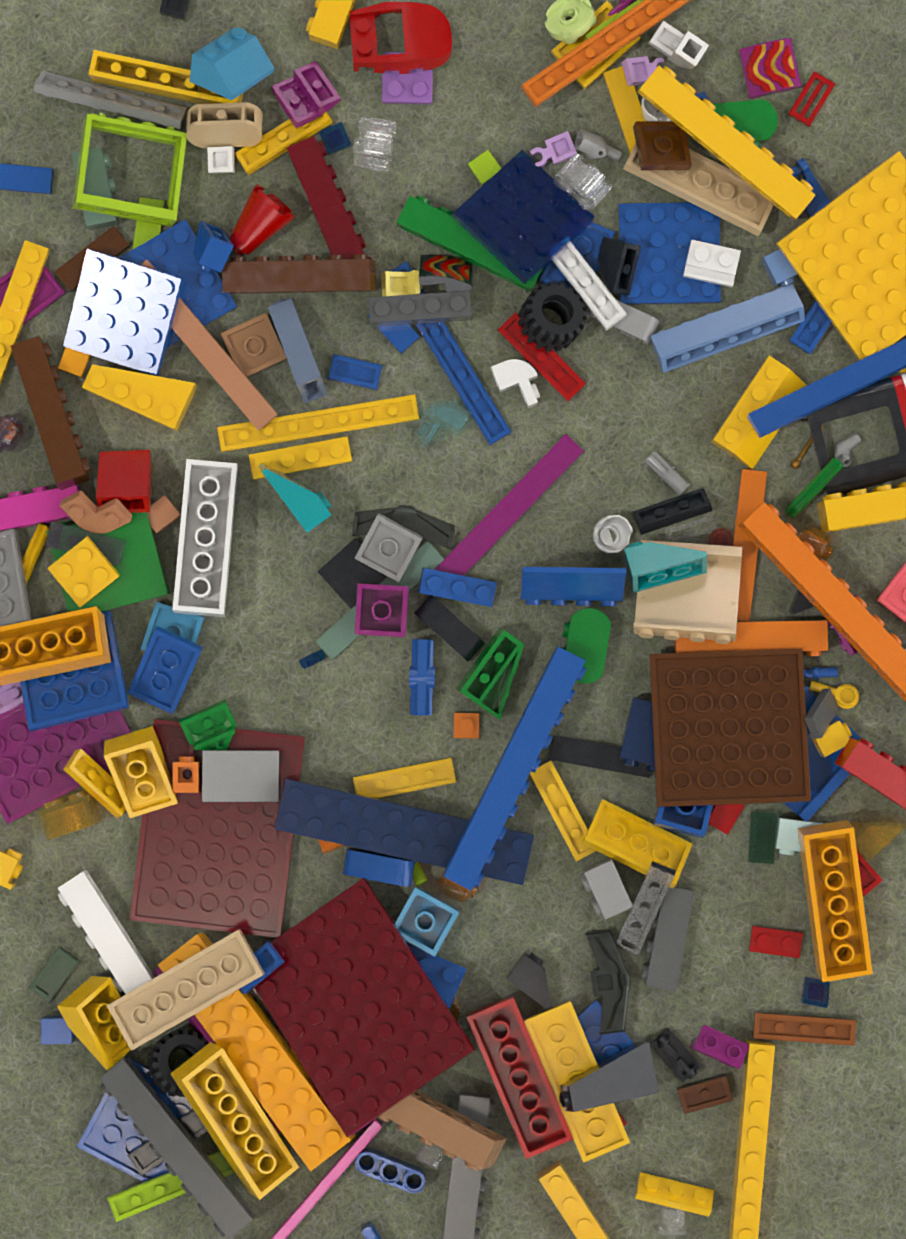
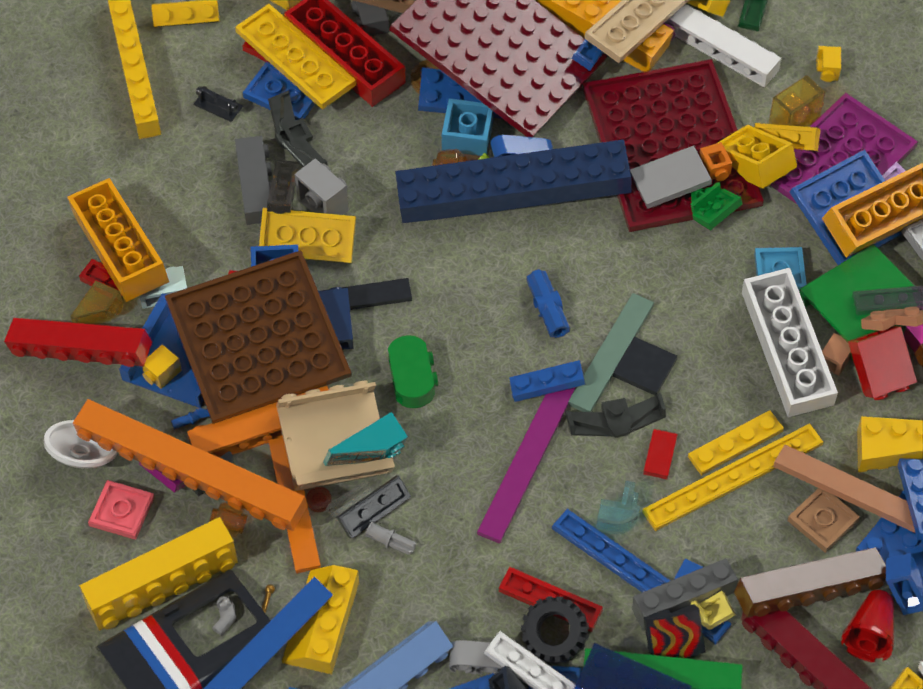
camera: 165 degrees right, 30 degrees down
(83, 571) = (880, 276): yellow plate -> none
(165, 670) = (772, 235): blue plate -> none
(297, 350) = (782, 523): sand blue slope -> none
(301, 499) = (726, 397): teal slope -> none
(312, 659) = (655, 284): clear blue tile -> none
(355, 372) = (720, 530): blue tile -> none
(377, 471) = (660, 454): none -> red tile
(381, 610) = (607, 333): magenta brick -> none
(388, 547) = (622, 386): light grey plate -> none
(405, 779) = (528, 227): yellow tile -> none
(449, 628) = (539, 346): black beam -> none
(466, 725) = (493, 282): orange plate -> none
(492, 673) = (487, 320): green wedge -> none
(514, 768) = (437, 246): blue brick -> none
(517, 373) = (565, 574): white brick -> none
(531, 978) = (360, 116): black slope -> none
(562, 809) = (385, 246): yellow plate -> none
(572, 584) = (448, 412): blue slope -> none
(602, 535) = (428, 463): white hair -> none
(614, 1080) = (266, 56): black slope -> none
(704, 1094) = (183, 84): reddish brown plate -> none
(720, 1047) = (183, 112): magenta bracket -> none
(762, 837) = (195, 269): clear green plate -> none
(775, 941) = (159, 207): red plate -> none
(804, 1028) = (113, 152): dark orange plate -> none
(814, 487) = (245, 567): green axle -> none
(815, 992) = (116, 175): clear blue slope -> none
(821, 713) = (176, 377): dark grey tile -> none
(845, 695) = (158, 409): yellow plate -> none

